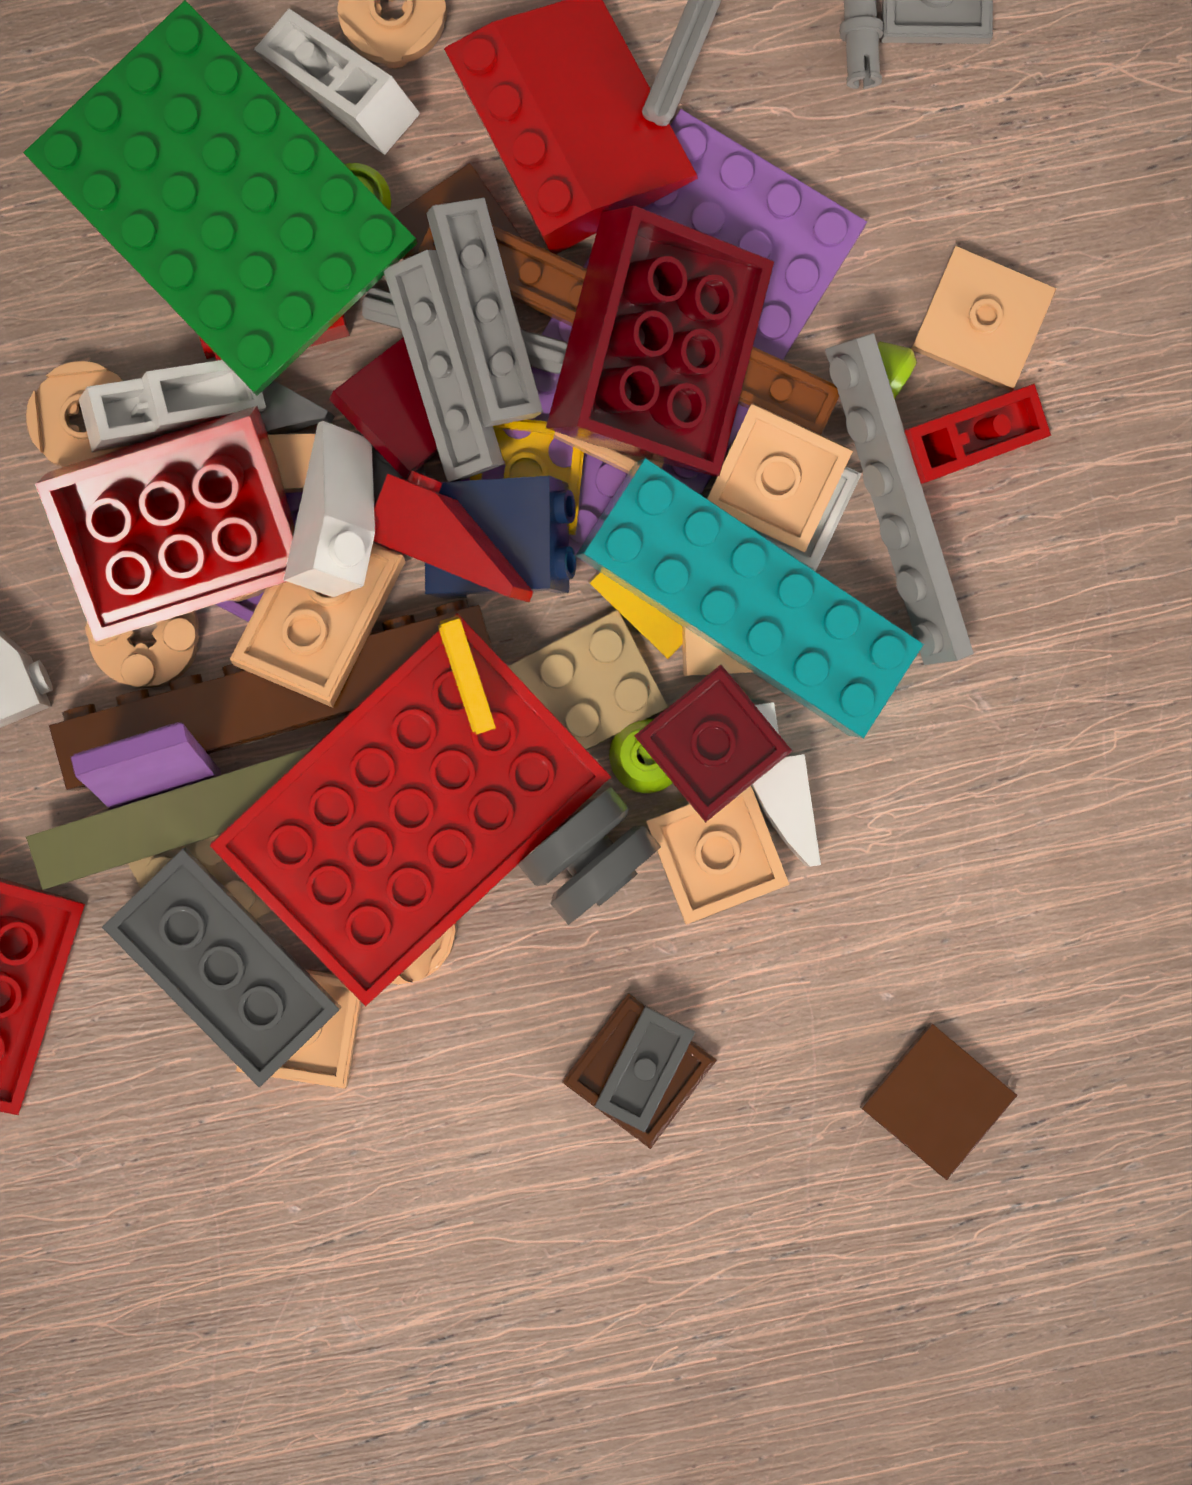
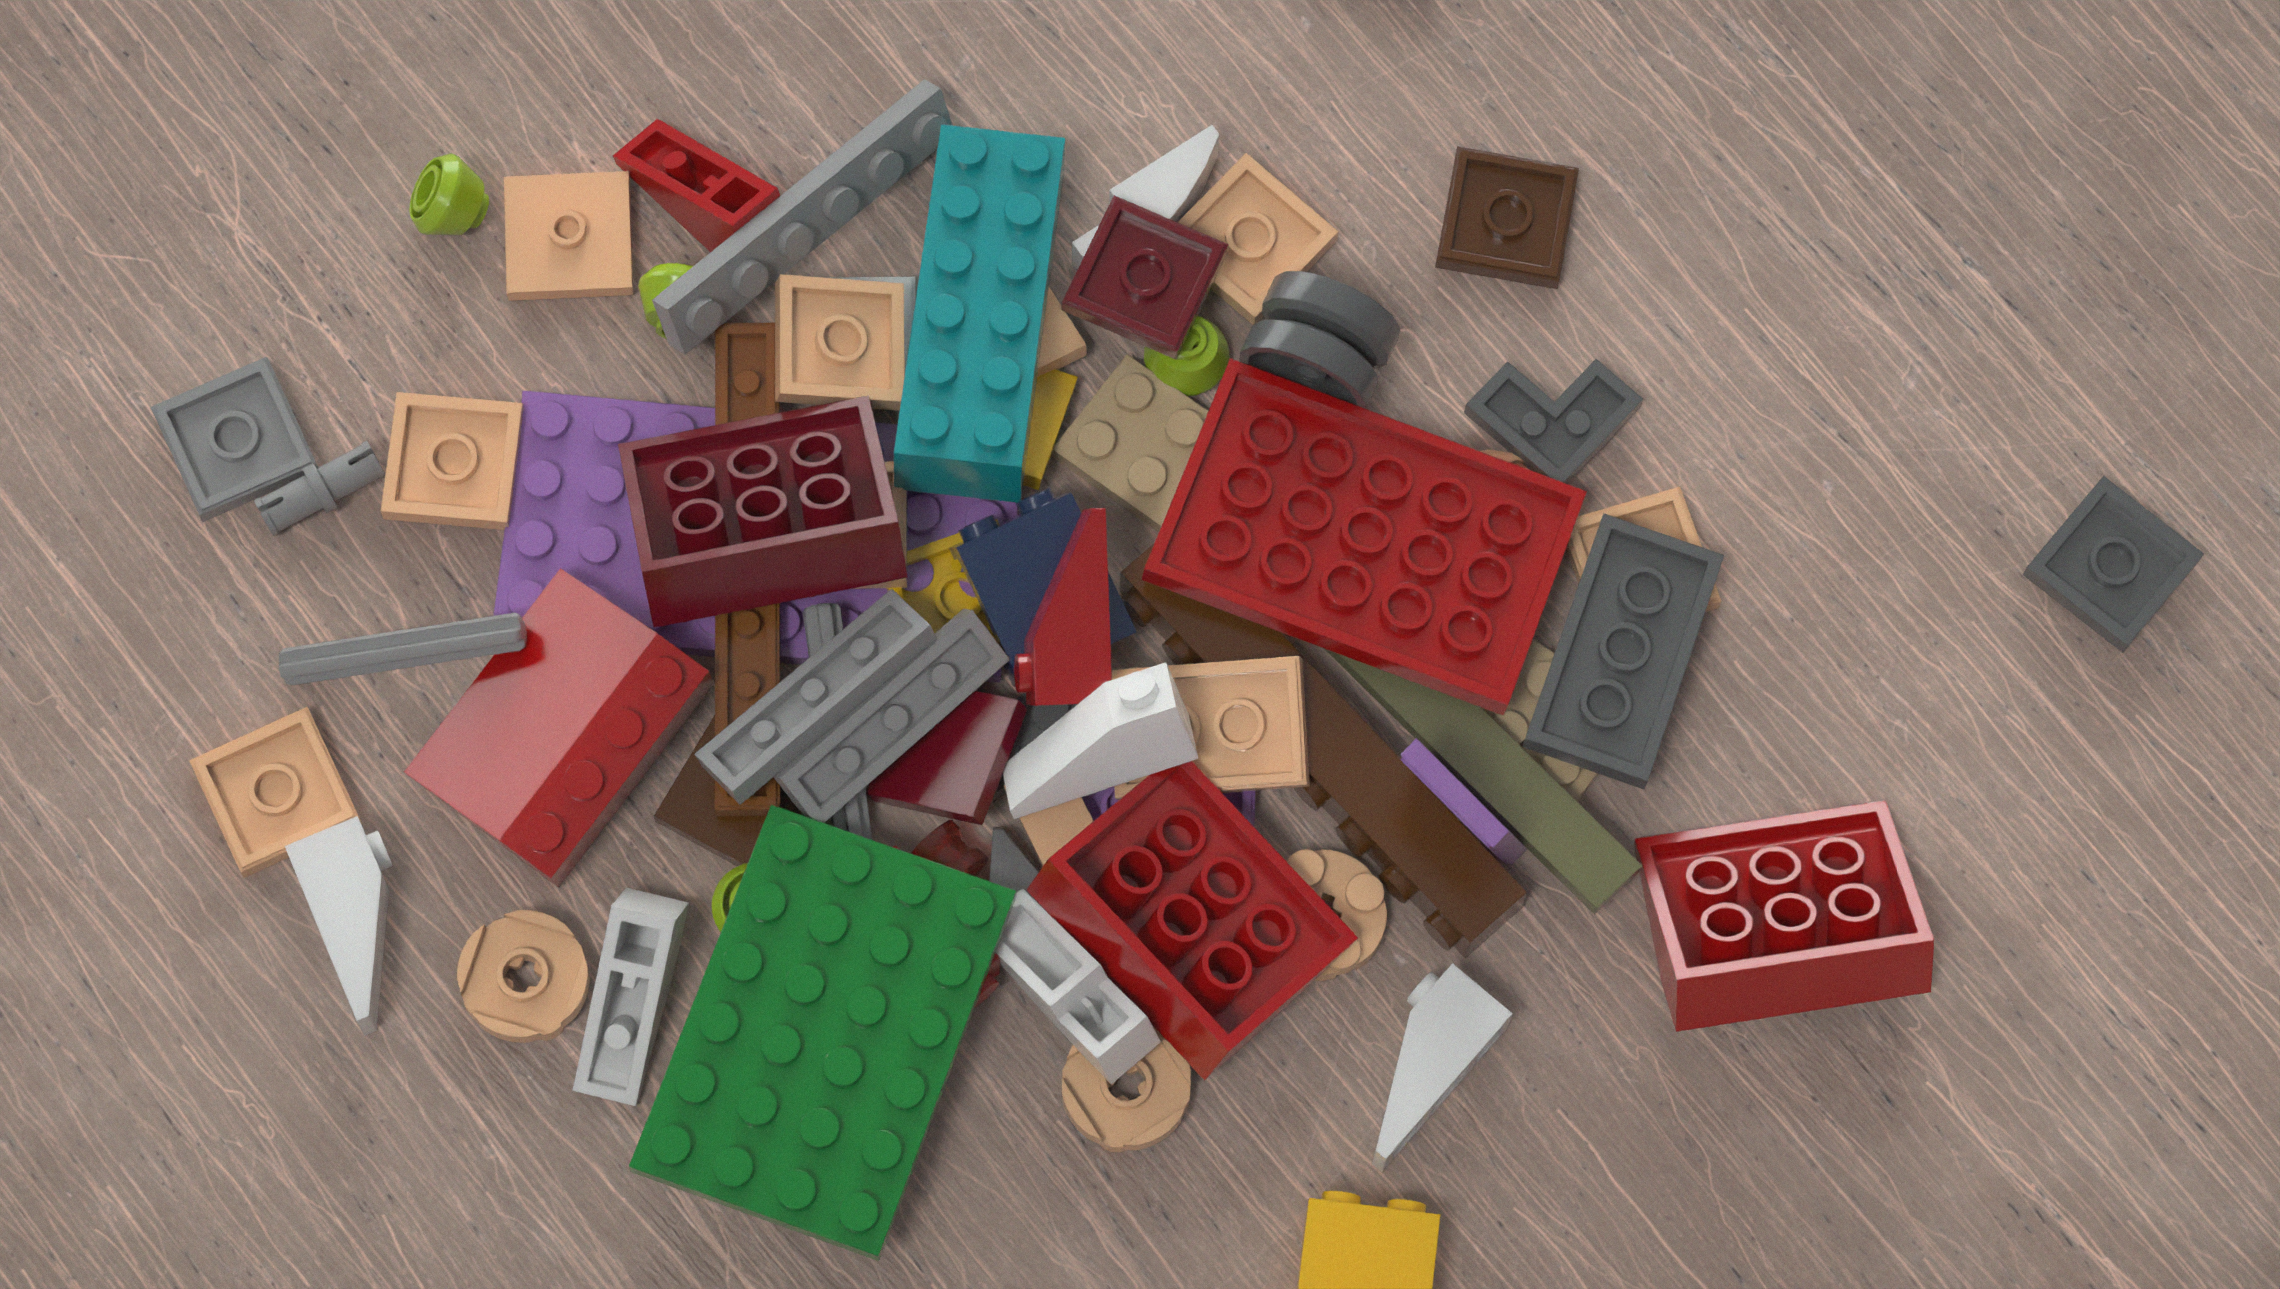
camera: 120 degrees left, 15 degrees down
(111, 1399) = (2113, 564): none -> dark grey plate
(322, 366) = (948, 848): none -> clear red wheel
(432, 1016) = (1548, 434): none -> dark grey plate
(466, 675) = (1203, 522): yellow tile -> none
(644, 1068) = (1502, 200): dark grey plate -> none
(834, 139) = (452, 461): none -> light nougat plate
(1056, 234) = (448, 197): none -> lime cone

